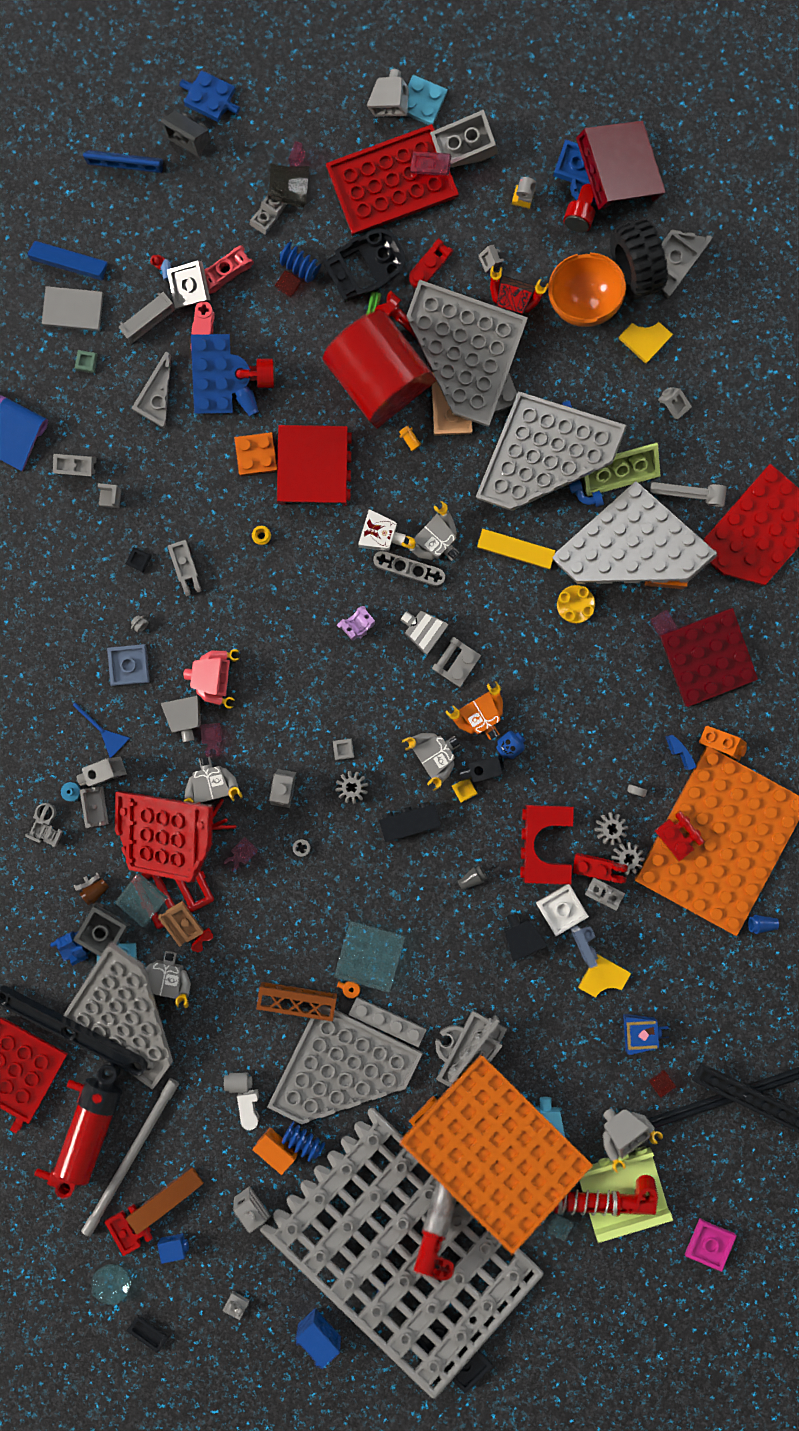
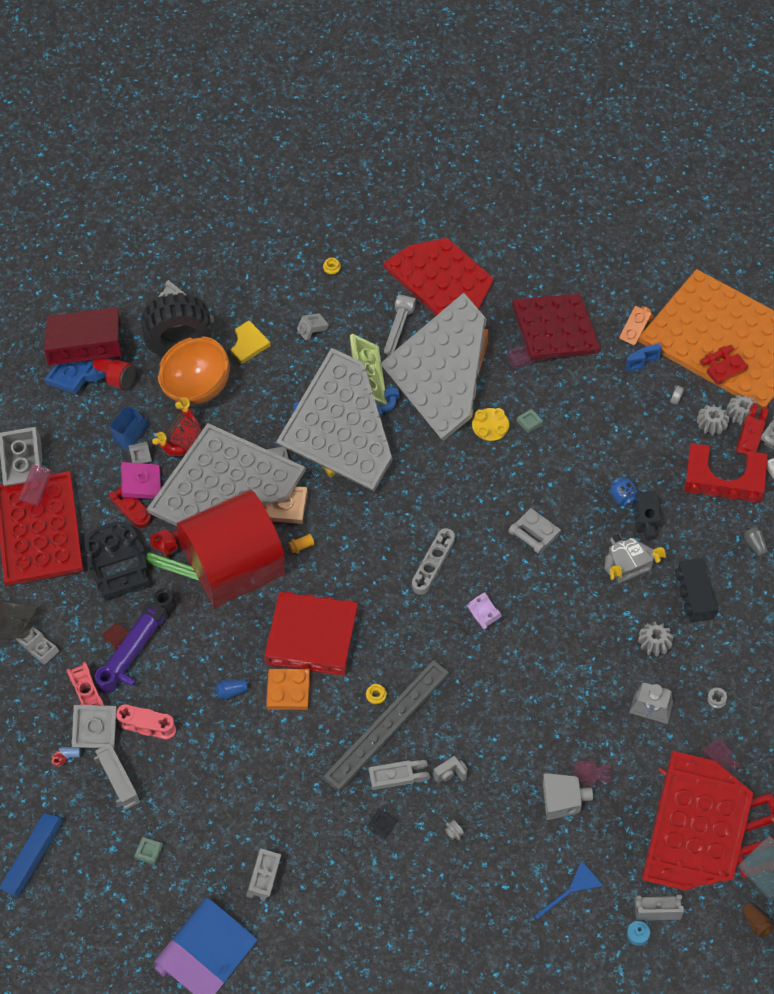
camera: 80 degrees left, 30 degrees down
(40, 827) = (682, 971): light grey piece -> none
(72, 308) = (86, 857): light grey tile -> none
(88, 882) = (746, 928): light grey piece -> none
(102, 771) = (619, 879): light grey torso -> none
(109, 495) = (305, 841): light grey panel -> none
(128, 665) = (499, 850): sand blue tile -> none
(154, 396) = (206, 782): light grey wing -> none
(191, 609) = (448, 768): none -> light grey bracket
(210, 676) = (523, 759): coral torso -> none
(210, 783) = (641, 774): light grey torso -> none
(221, 373) = (197, 705): blue plate -> none
(230, 549) = (385, 726): none -> dark grey plate
(298, 263) = (97, 618): blue piece -> none
(309, 312) = (153, 616): none -> dark purple piece
(343, 749) = (614, 645): light grey tile -> none
(379, 533) = (392, 581): white torso -> none
(423, 630) = (499, 553): torso -> none
(435, 537) = (405, 530): light grey torso -> none
(457, 266) = (140, 480): none -> dark pink plate
(464, 790) = (666, 540): yellow tile -> none
(481, 713) = (589, 511): orange torso -> none
(516, 549) = (428, 468): yellow tile -> none
(517, 231) = (124, 420): none -> blue piece
(524, 192) = (86, 416): light grey leg -> none
(587, 643) = (529, 421): none -> sand green tile
(762, 405) = (331, 266): none -> yellow plate

